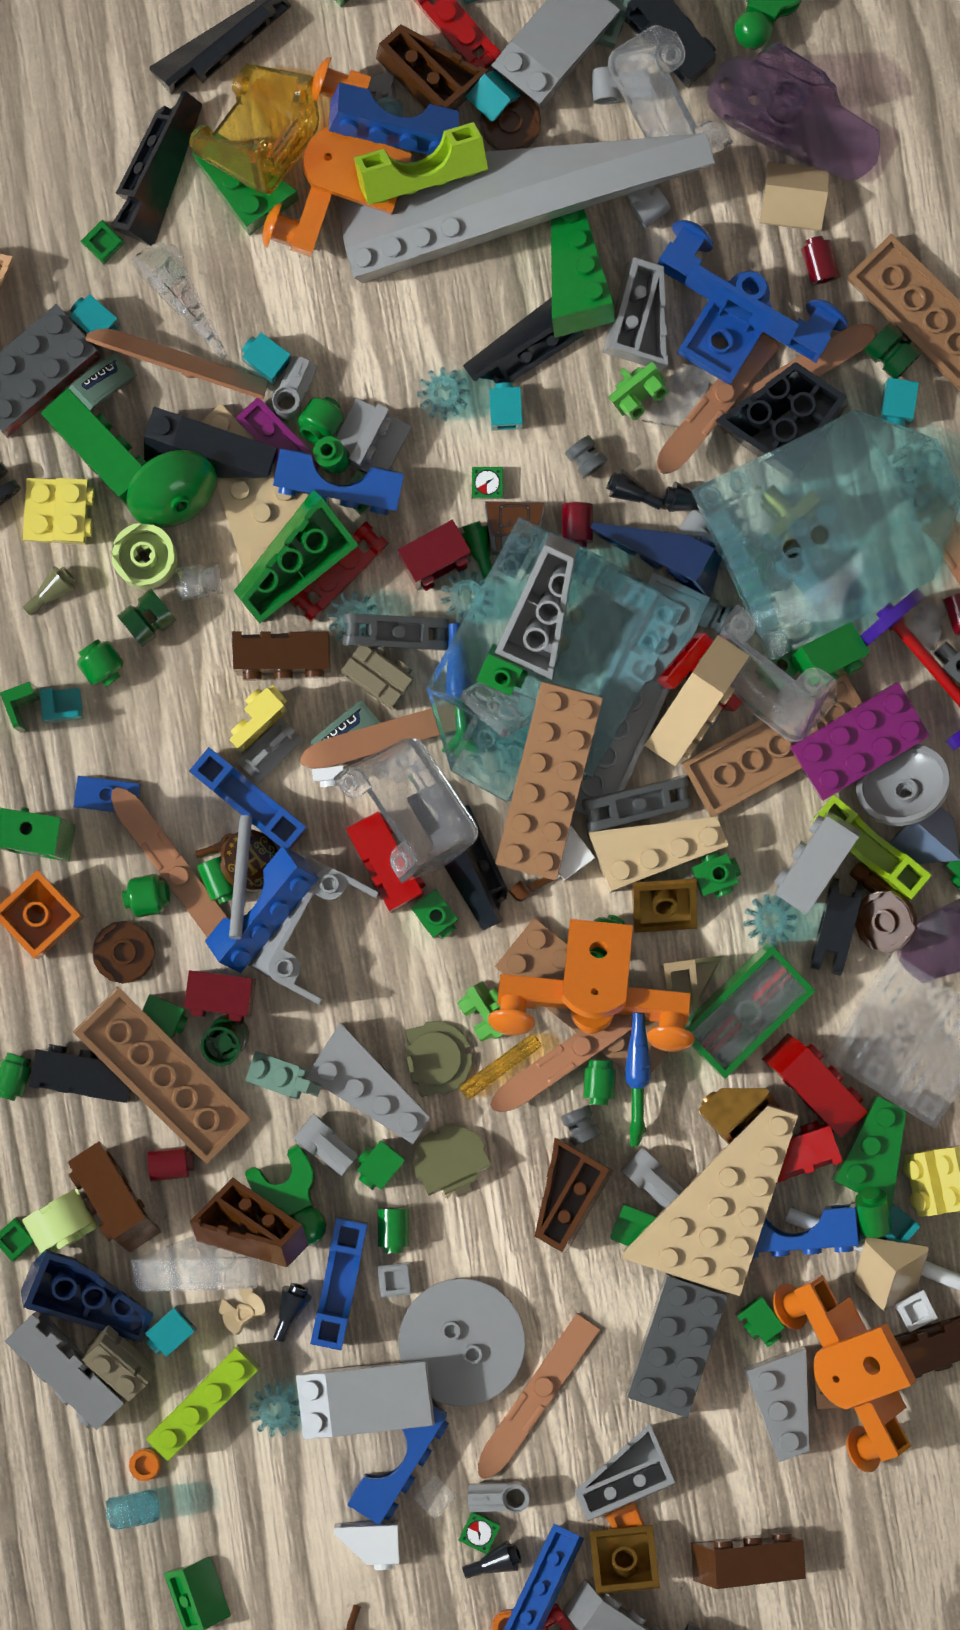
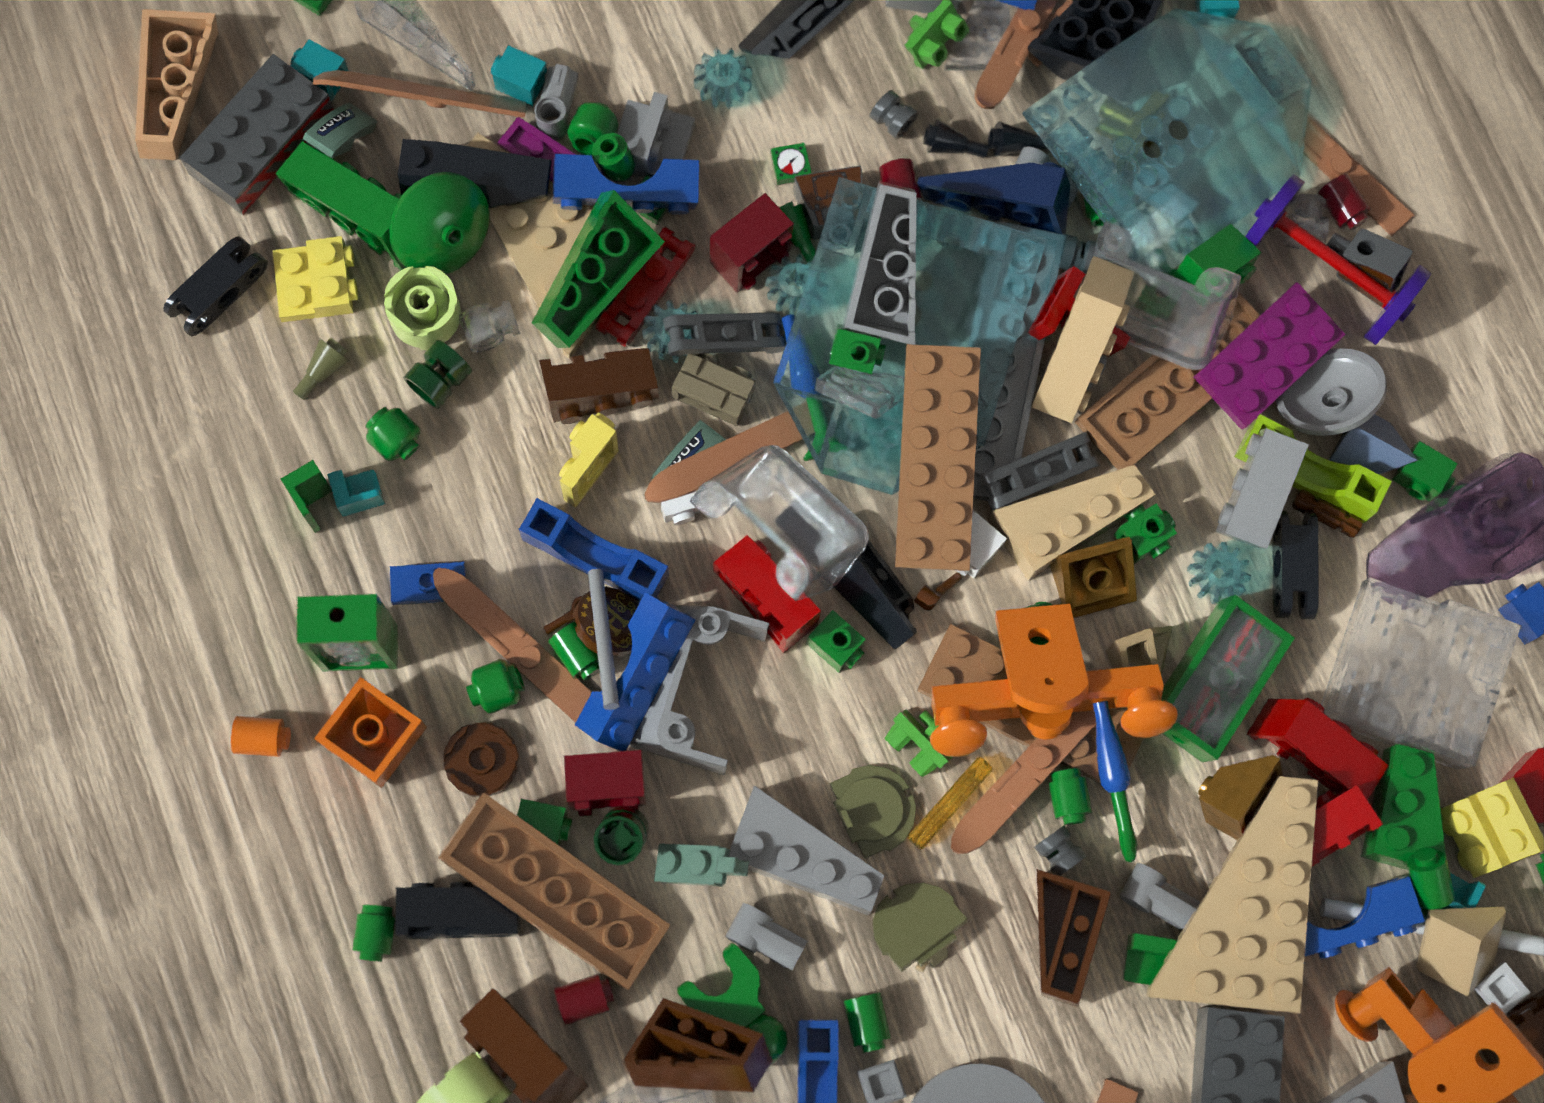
camera: 20 degrees left, 10 degrees down
(270, 750) = (607, 495): light grey hinge -> none
(378, 1165) = (834, 948): green brick -> none
(505, 407) = (794, 80): teal brick -> none
(761, 1321) = (1326, 1040): green brick -> none
(886, 921) = (1351, 547): tile -> none

